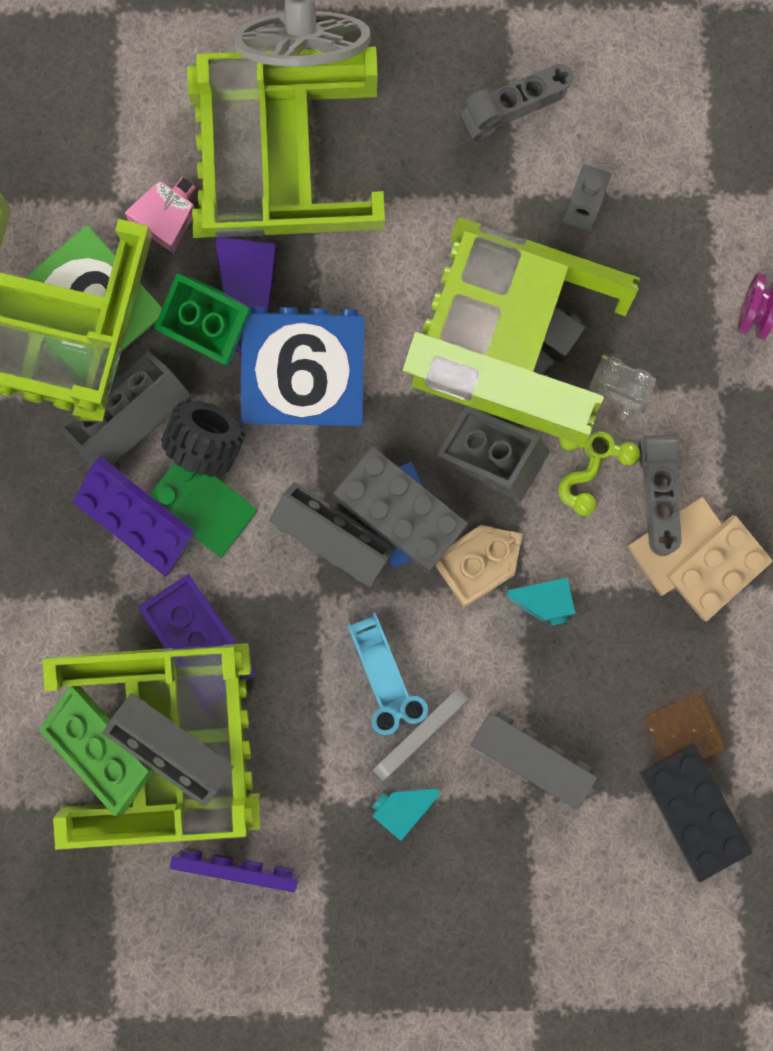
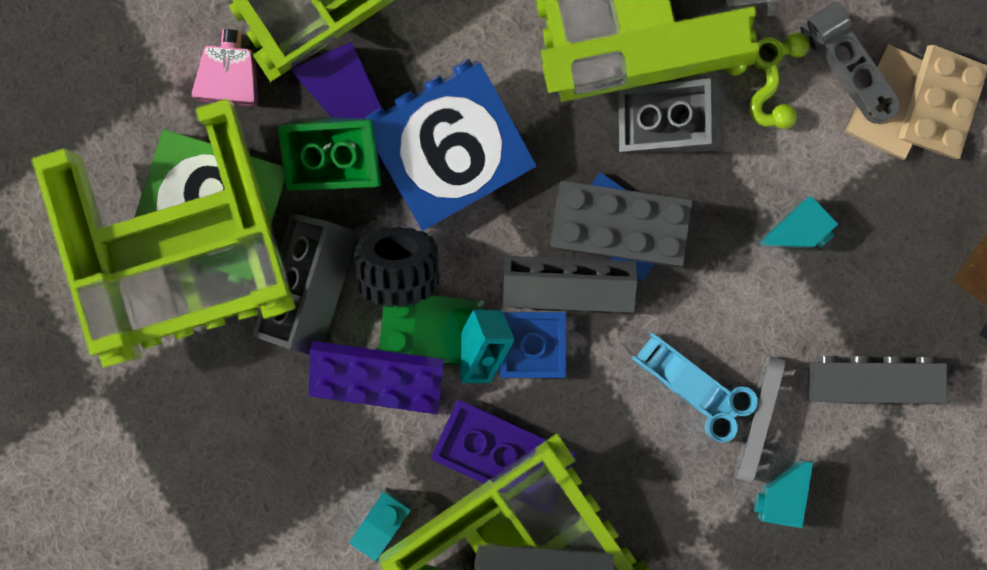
camera: 25 degrees left, 5 degrees up
(67, 635) = (380, 525): none -> teal slope
(234, 543) = (484, 345): none -> teal slope
(274, 566) = (537, 346): none -> blue plate
(480, 562) = (720, 227): tan tile -> none

